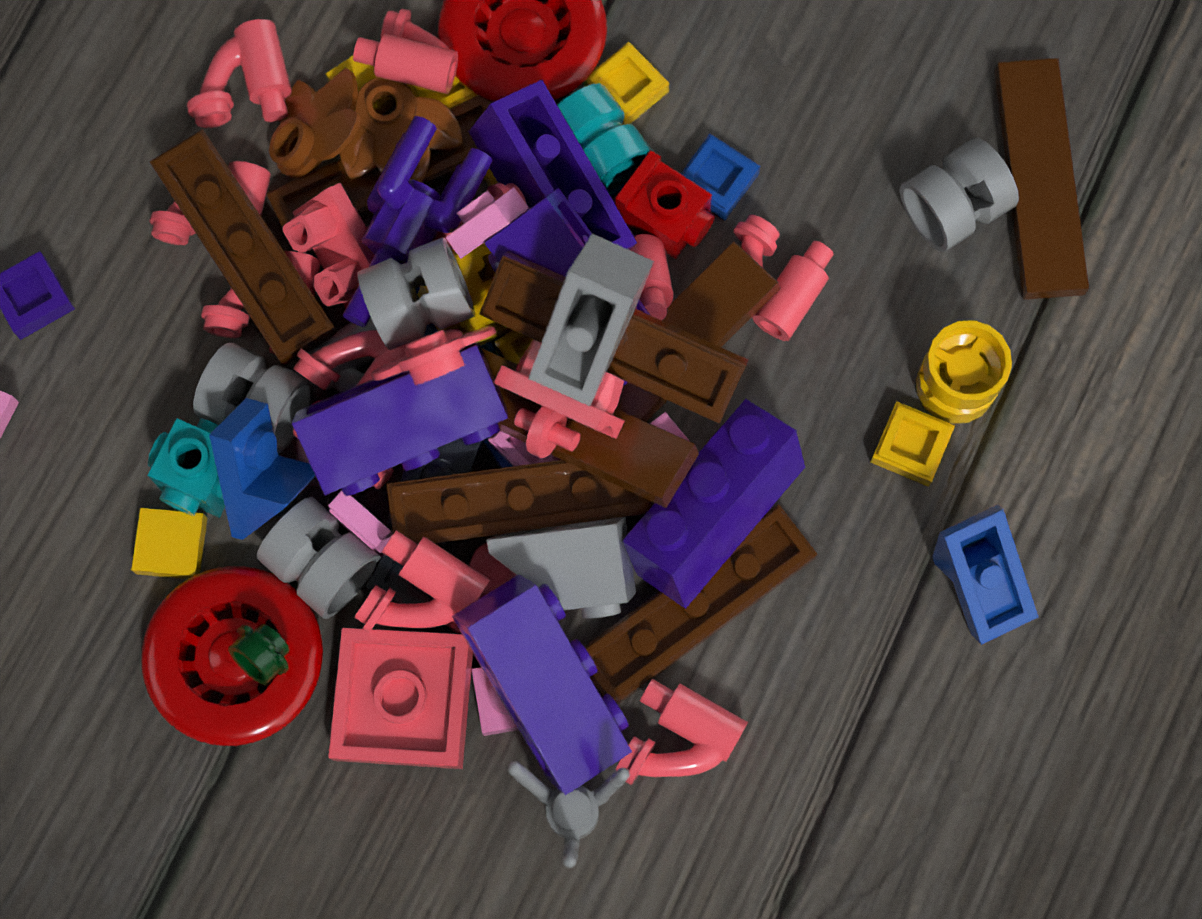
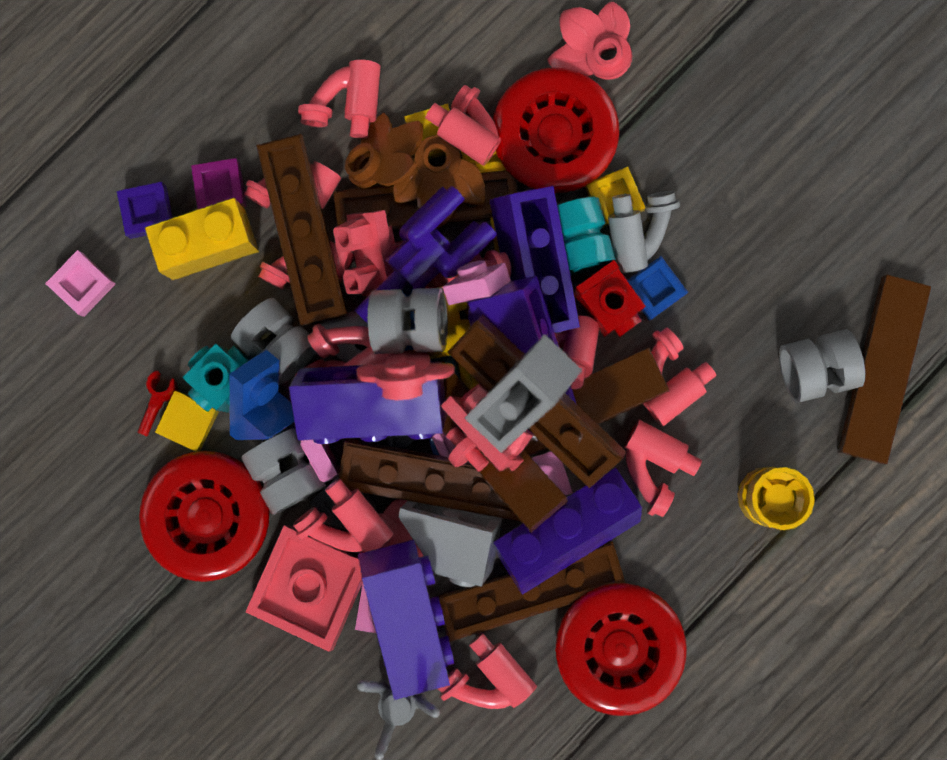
camera: 20 degrees right, 10 degrees up
(115, 234) = (218, 182): none -> magenta plate
(116, 304) = (201, 239): none -> yellow brick
(121, 526) = (156, 401): none -> red hand
(260, 652) = (221, 528): dark green plate -> none
(656, 115) = (626, 230): none -> light grey plant
(799, 368) = (663, 450): none -> coral plant
(840, 637) = (621, 649): none -> red wheel
(912, 444) = (721, 530): yellow tile -> none
(986, 574) = (737, 647): blue slope -> none

